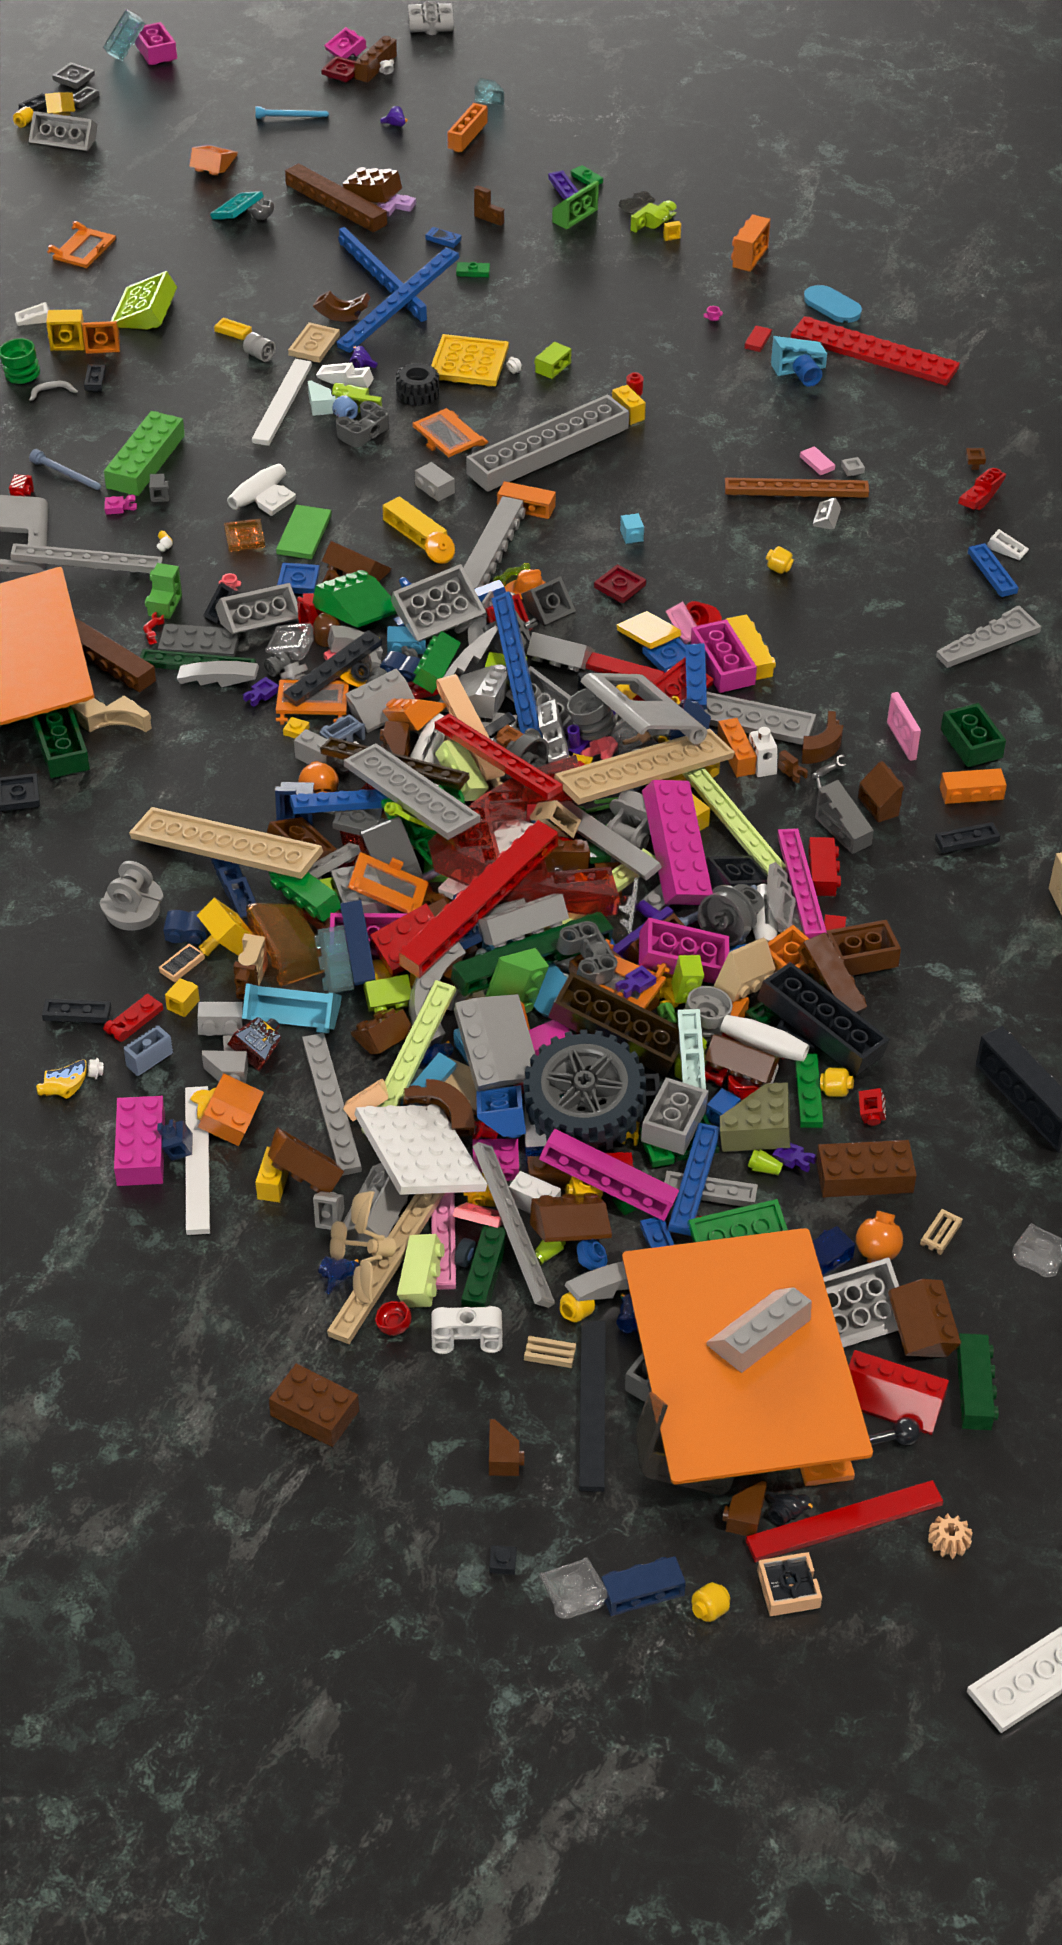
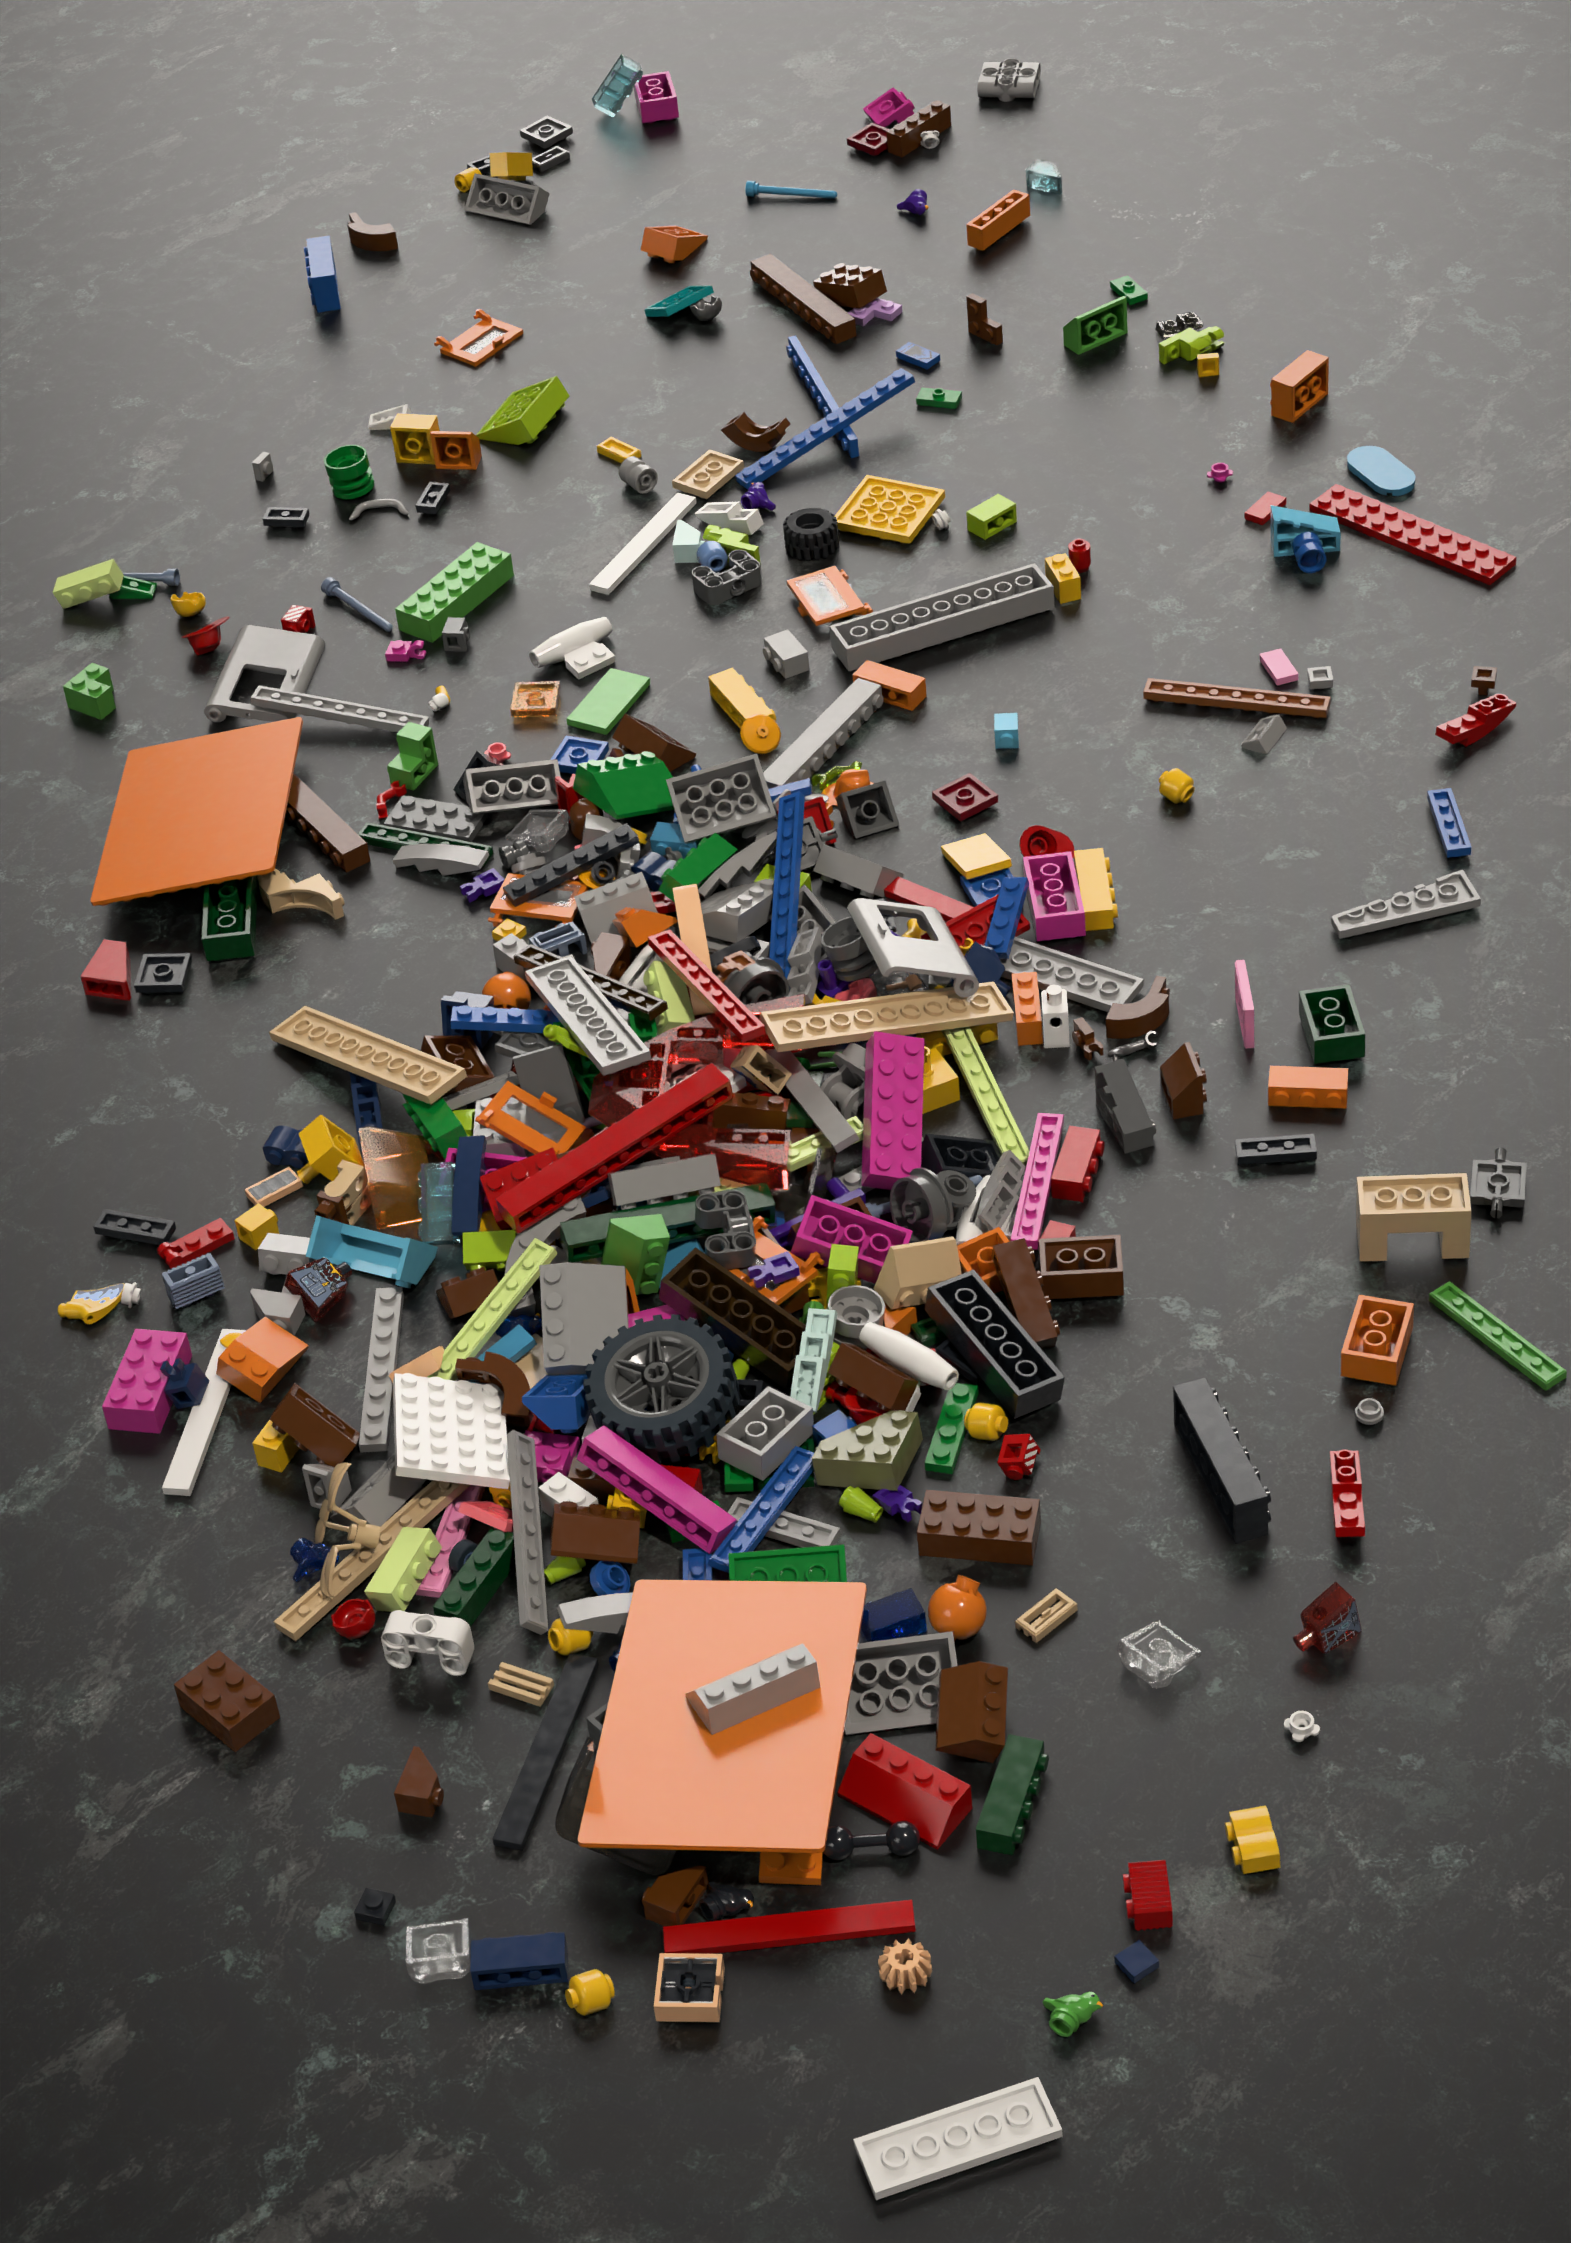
camera: 20 degrees right, 5 degrees down
(133, 898) = (241, 1107): light grey piece -> none
(562, 184) = (1091, 295): dark purple plate -> none
(682, 619) = (1016, 847): bright pink tile -> none
(1006, 545) = (1473, 785): white slope -> none

